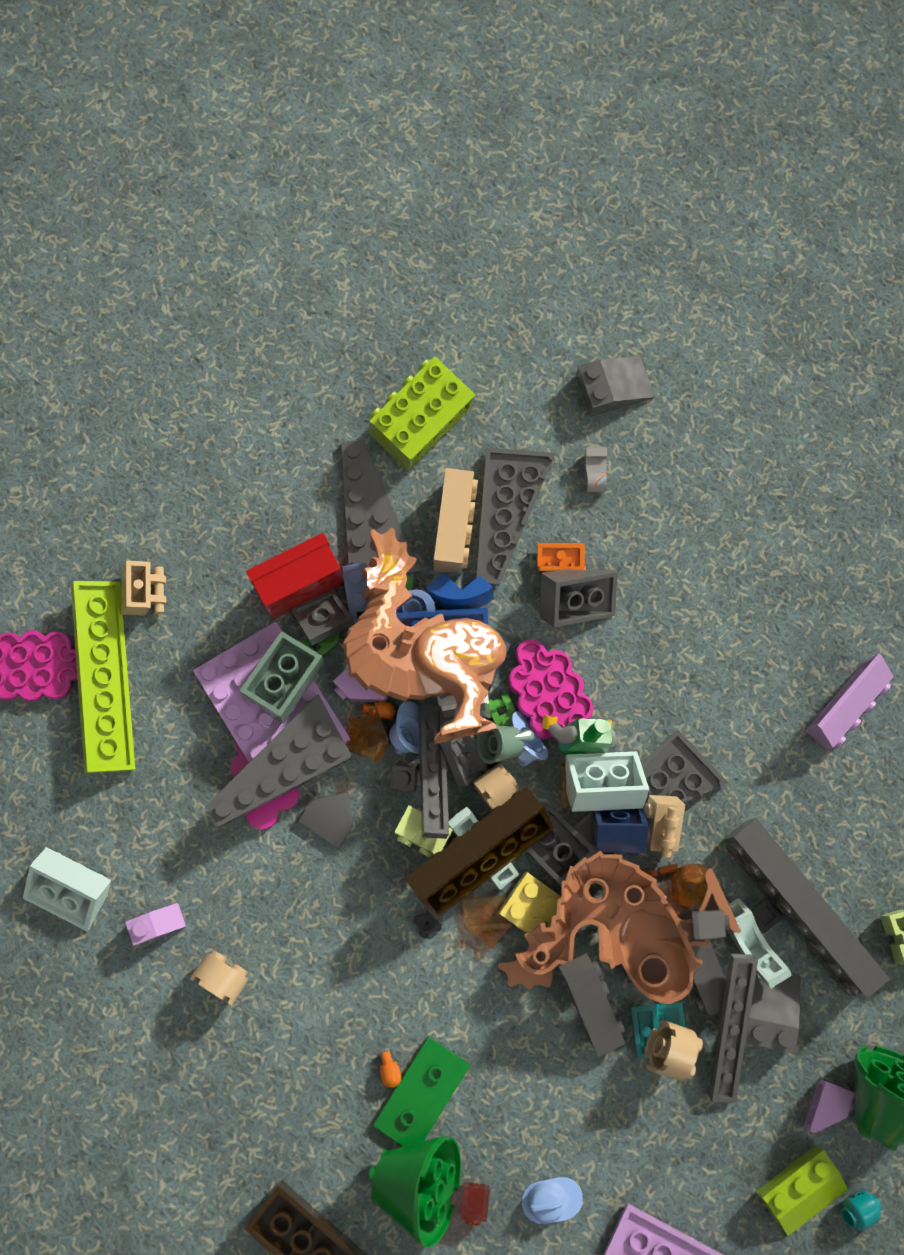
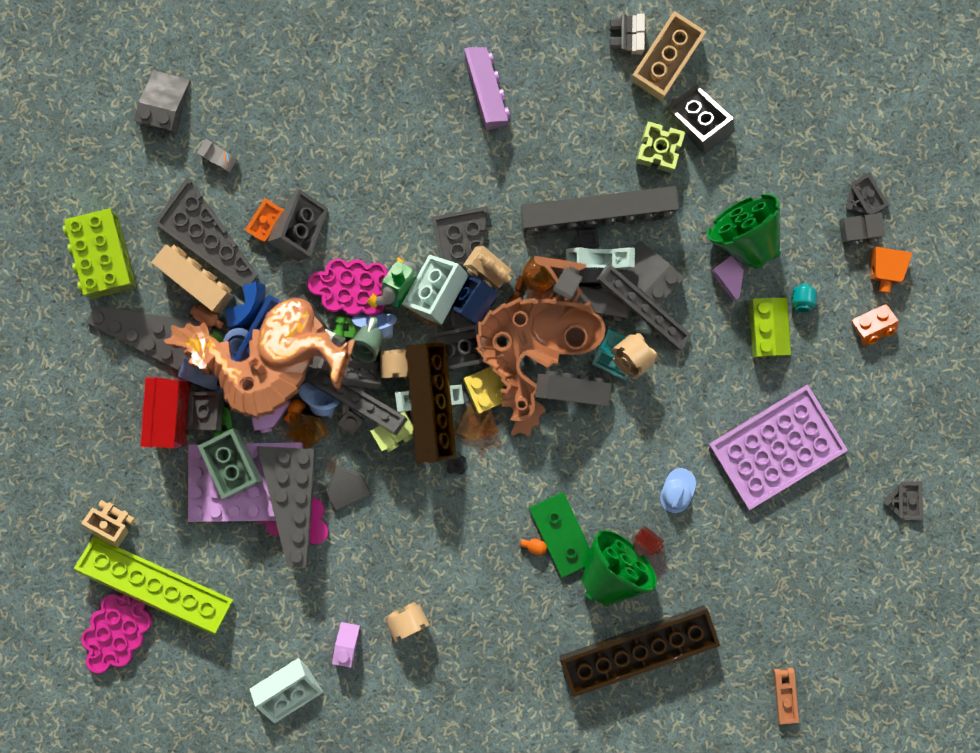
camera: 55 degrees left, 10 degrees up
(425, 558) = (205, 315): none -> nougat plant
(727, 945) = (589, 276): none -> black tyre

